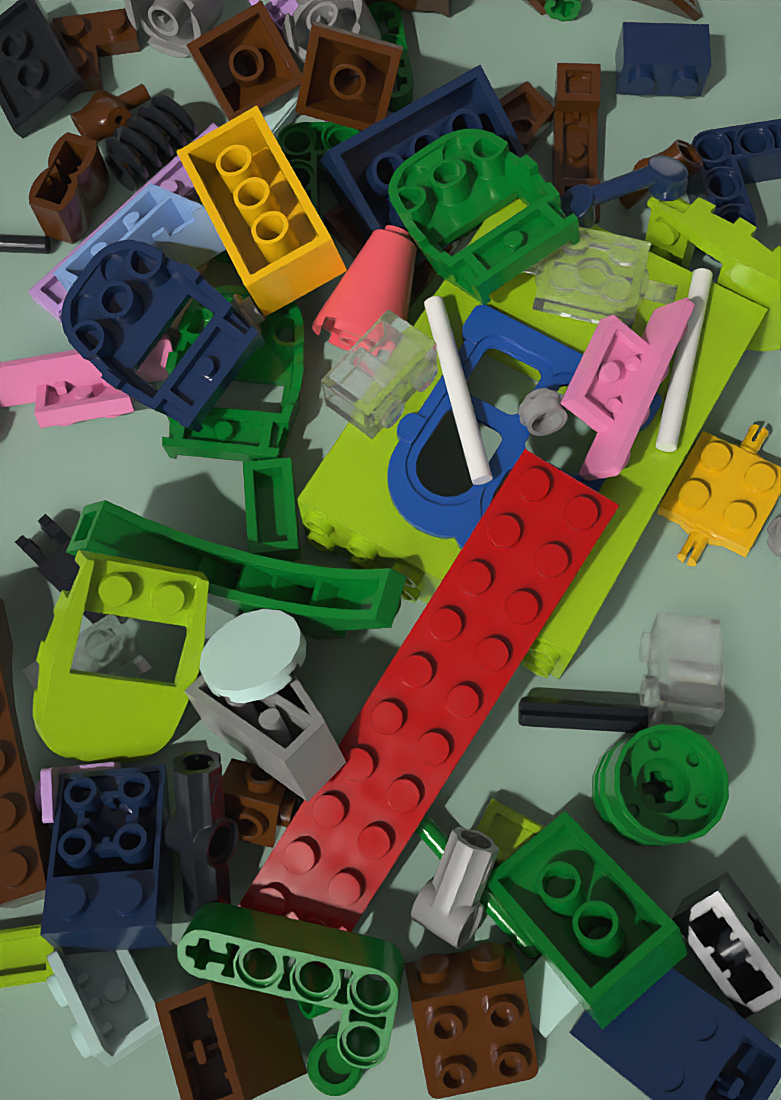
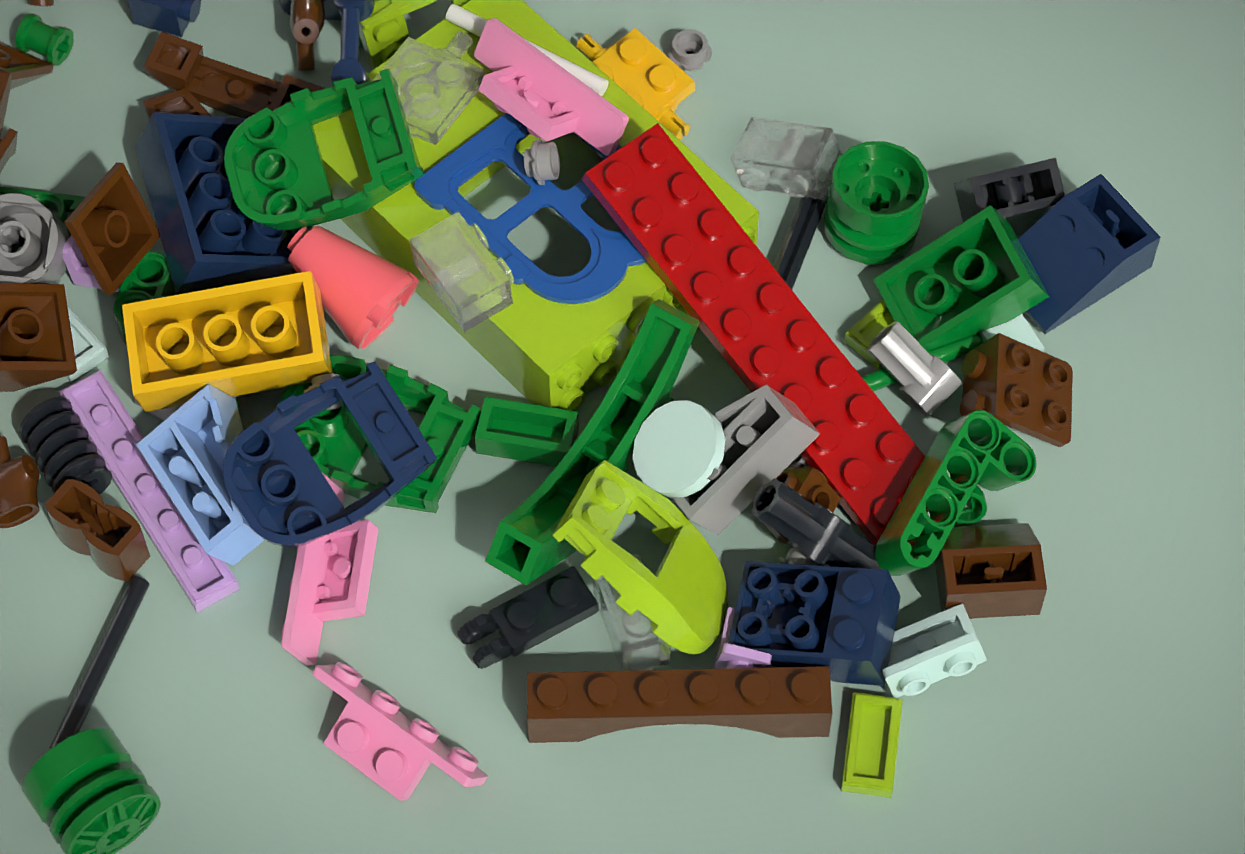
camera: 75 degrees left, 10 degrees down
(328, 1070) = (1026, 504): green tile -> none
(458, 391) = (498, 219): white bar -> none

